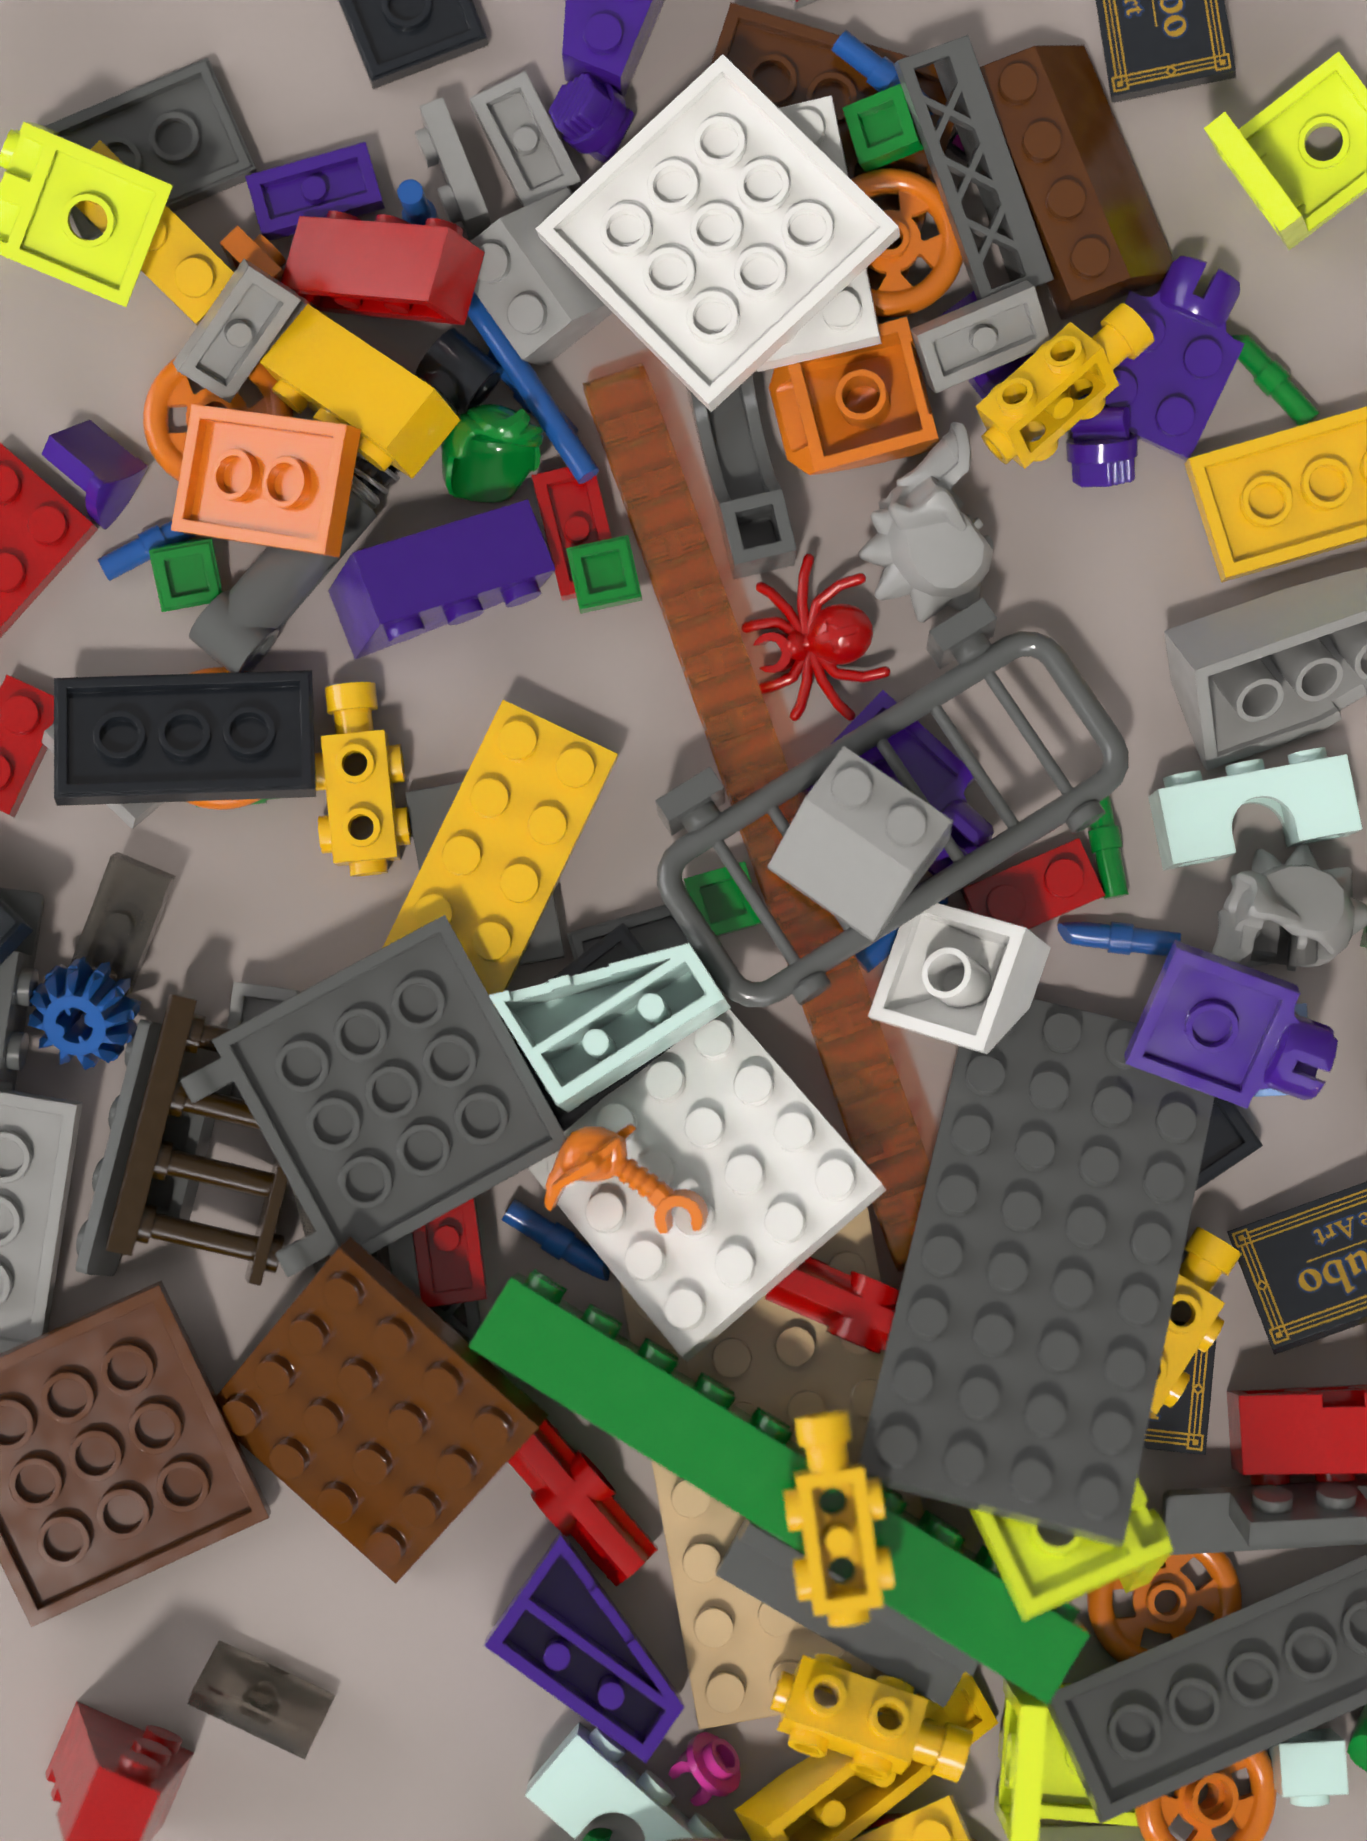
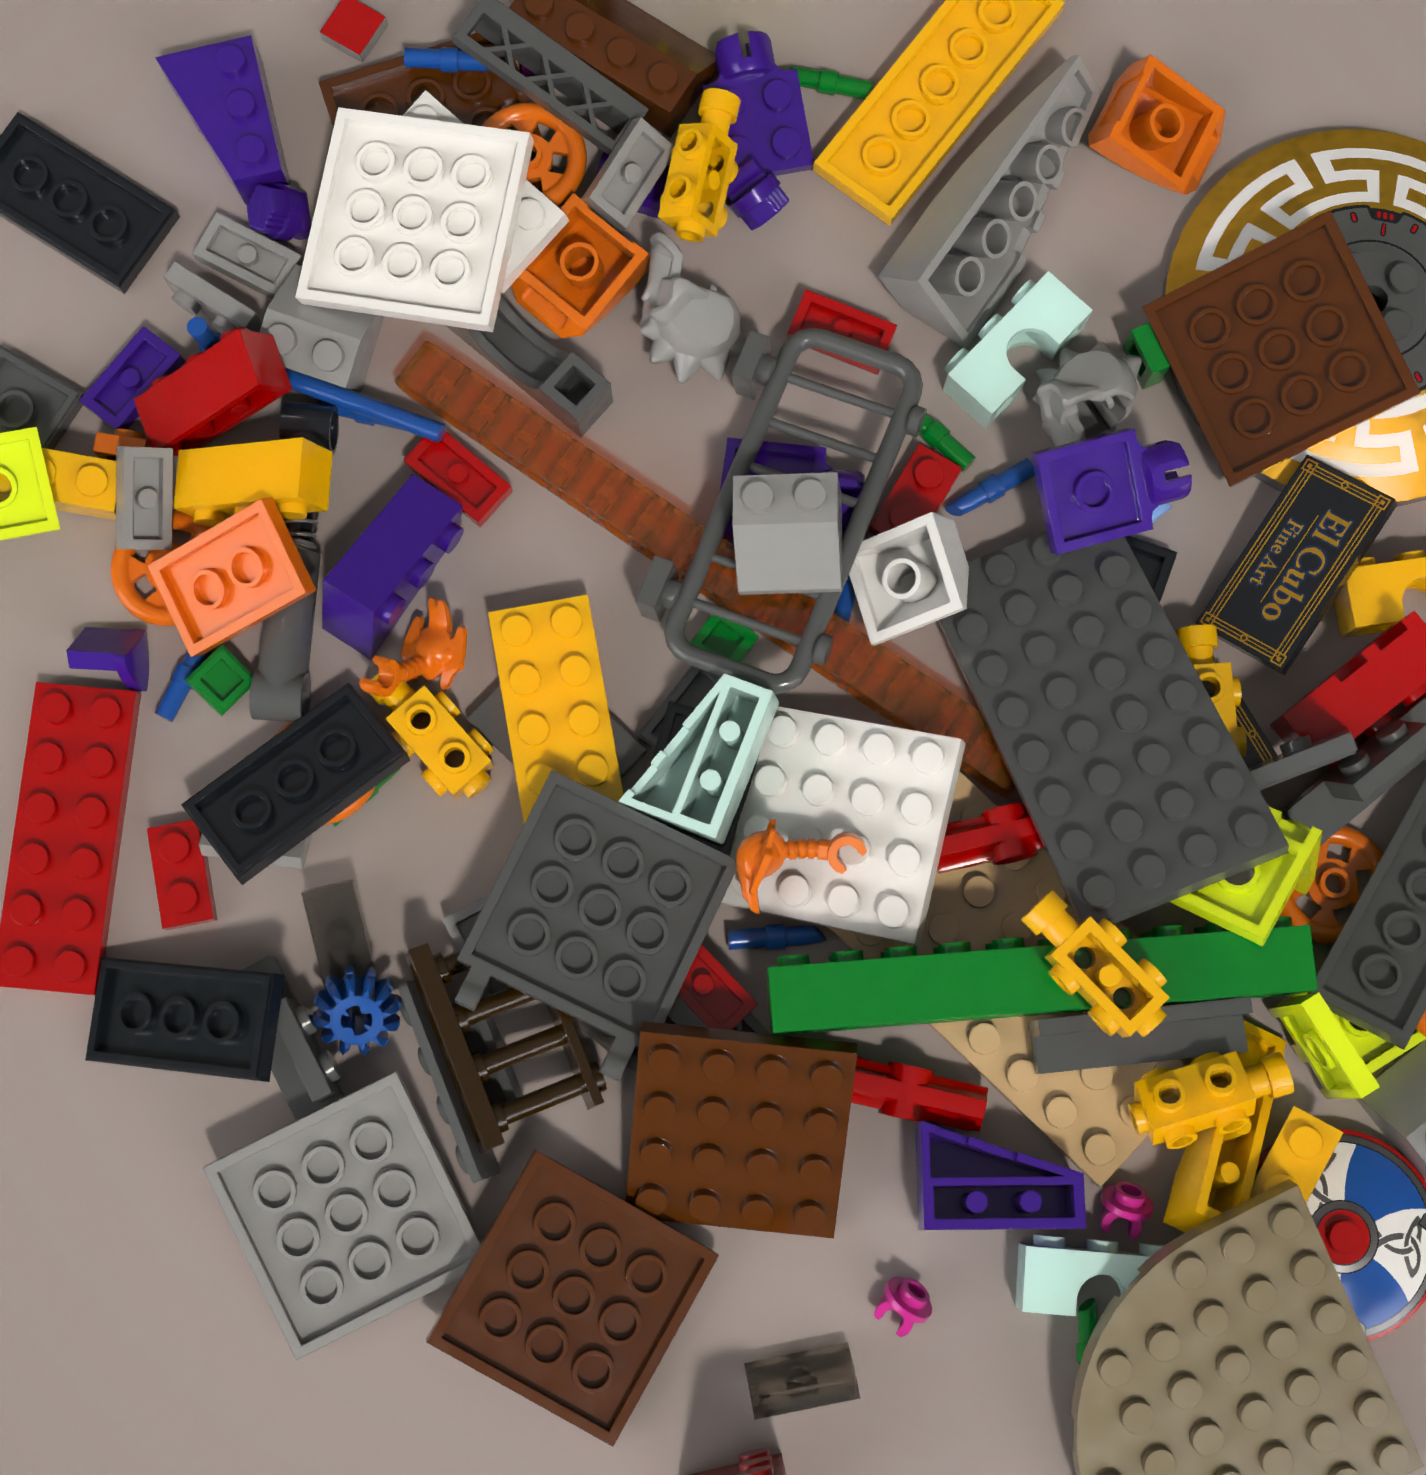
camera: 35 degrees left, 5 degrees down
(415, 695) = (425, 652): none -> orange piece
(423, 1699) = (908, 1299): none -> dark pink plate
(490, 453) = (367, 463): green hair -> none
(604, 574) = (496, 488): green tile -> none
(816, 640) = (662, 436): red animal -> none
(882, 128) = (473, 89): green plate -> none
(1092, 651) = (828, 314): none -> red plate
(1217, 1458) = (1303, 756): none -> dark grey plate

